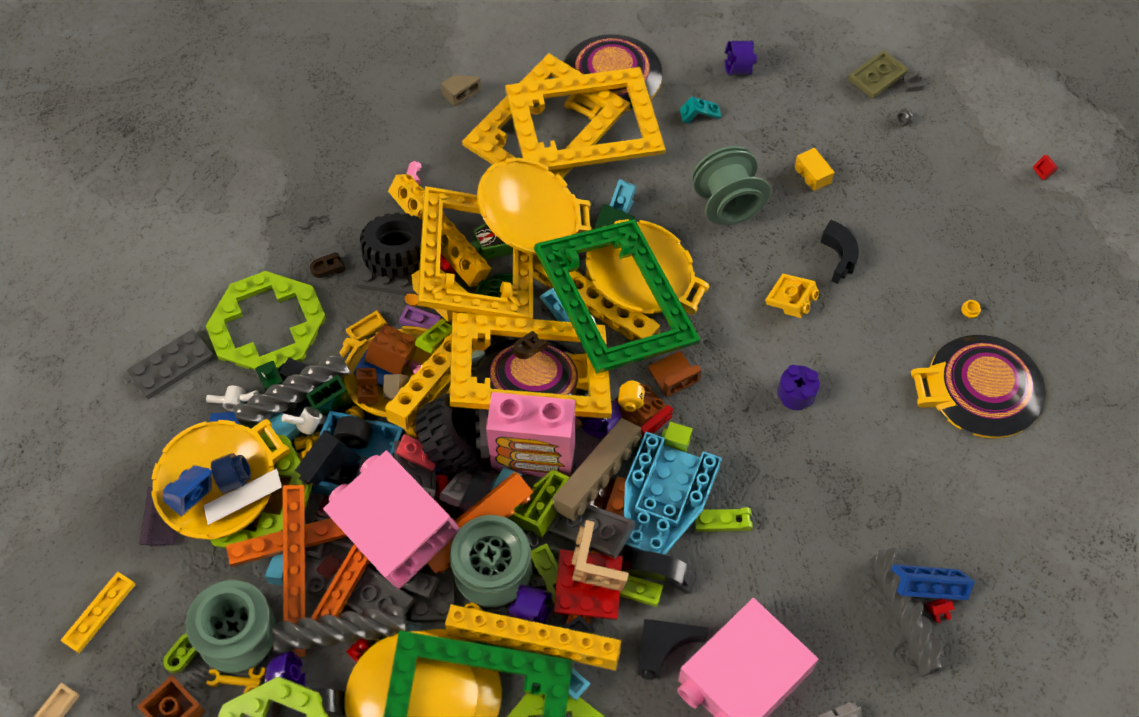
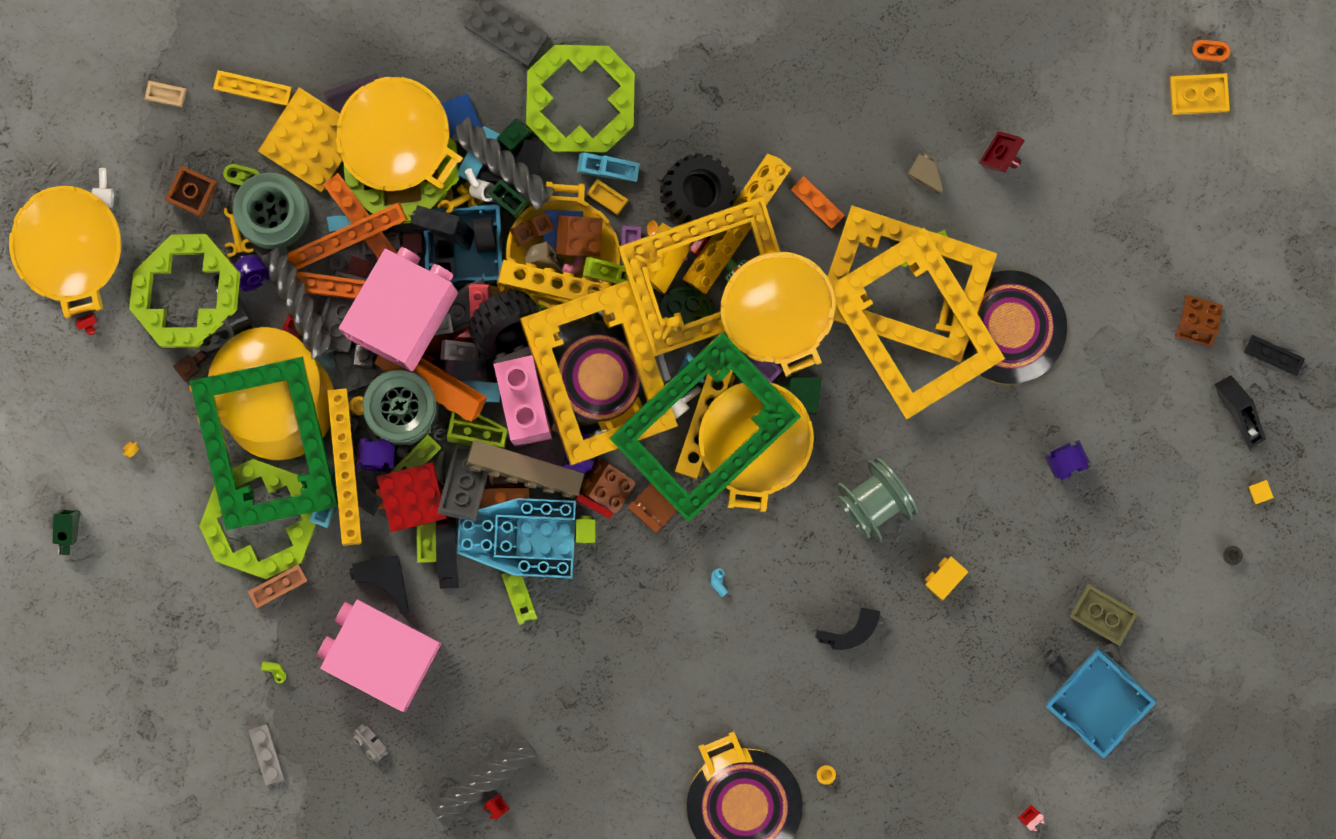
camera: 70 degrees right, 25 degrees up
(175, 573) = (305, 140): none -> yellow plate
(188, 489) = (374, 117): blue slope -> none
(230, 472) = (401, 147): dark blue piece -> none
(234, 396) = (487, 107): white piece -> none
(242, 496) = (385, 167): white sticker -> none
(320, 268) = (656, 124): dark brown plate -> none
(339, 317) = (608, 167): none -> medium azure slope
(355, 411) = (506, 225): yellow plate -> none
(412, 170) = (805, 166): bright pink arm -> none
(448, 171) = (817, 202): none -> orange plate
(465, 31) = (1002, 152): none -> dark red tile
(529, 346) = (606, 363): dark brown plate -> none
(591, 573) = (411, 500): tan bracket -> none
(623, 196) = (836, 393): medium azure slope -> none
(631, 396) = (601, 476): yellow head -> none
(696, 105) = (986, 438): teal bracket -> none
(761, 344) = (717, 580): none -> medium azure arm
(793, 295) = (780, 596): yellow plate -> none
(798, 387) = (669, 637): dark purple brick -> none
(933, 582) = (509, 797): blue fence -> none
(955, 89) = (1101, 702): none -> dark azure tile

